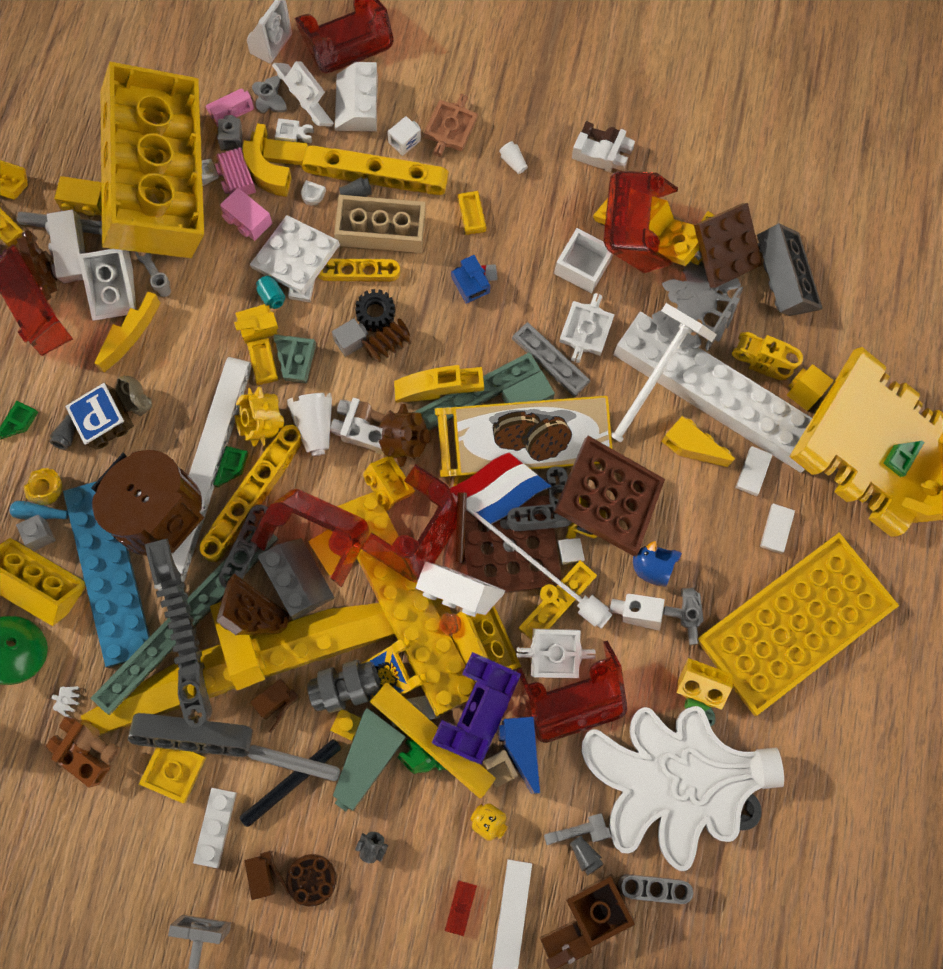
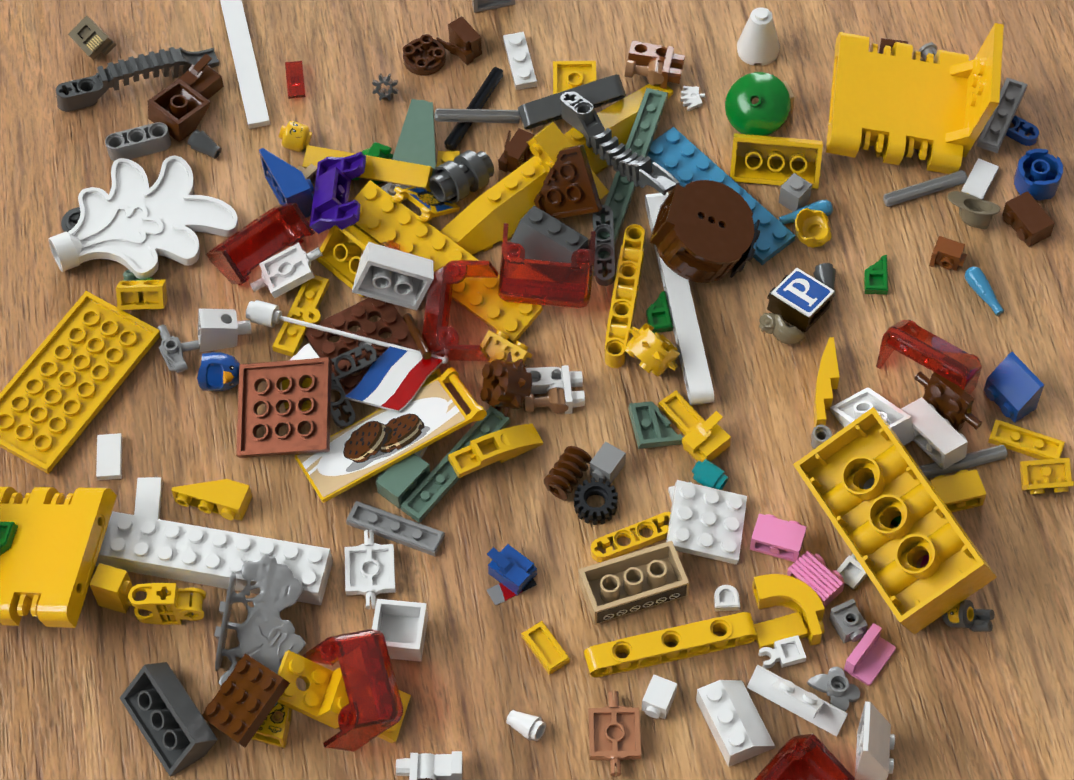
camera: 165 degrees right, 15 degrees down
(313, 421) = (603, 373): white cone -> none
(359, 187) = (680, 615): dark grey cone -> none
(595, 826) = (203, 166): light grey brick -> none
(686, 326) = (261, 563): white tile -> none

